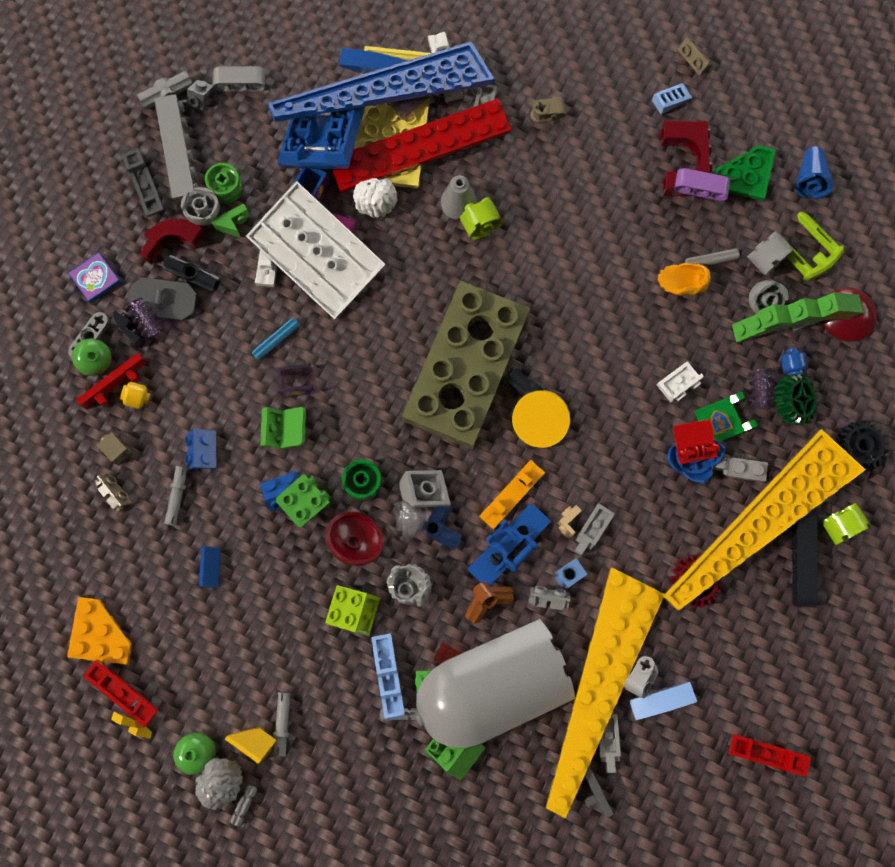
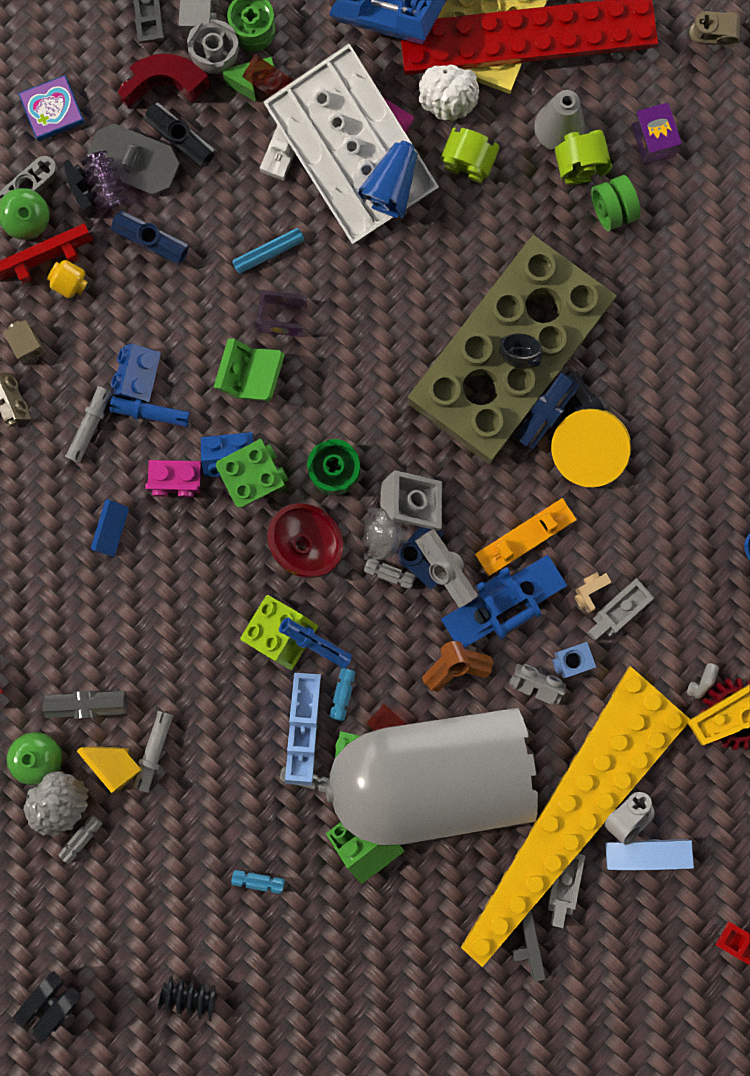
camera: 20 degrees right, 5 degrees up
(177, 348) = (136, 231): none -> dark blue piece
(218, 475) = (148, 411): none -> blue pin
(222, 702) = (85, 704): none -> dark grey piece
(243, 217) = (266, 76): none -> clear red plate
(248, 517) = (174, 477): none -> dark pink bracket
(321, 185) = (385, 49): blue piece -> none
(350, 268) = (391, 181): none -> blue cone
(374, 609) = (307, 638): none -> blue pin
(384, 800) = (257, 882): none -> dark azure axle
(401, 236) = (470, 154): none -> lime brick
(410, 643) = (342, 694): none -> dark azure axle
(412, 581) = (363, 613): light grey hair -> none
(421, 546) = (389, 573): none -> light grey axle
(461, 531) = (446, 568): none -> light grey piece
(473, 363) = (521, 350): none -> black hat
(503, 401) = (547, 410): none -> dark blue piece
(512, 244) = (616, 203): none -> bright green wheel
(527, 191) = (656, 134): none -> piece
(668, 564) = (706, 683): none -> light grey arm

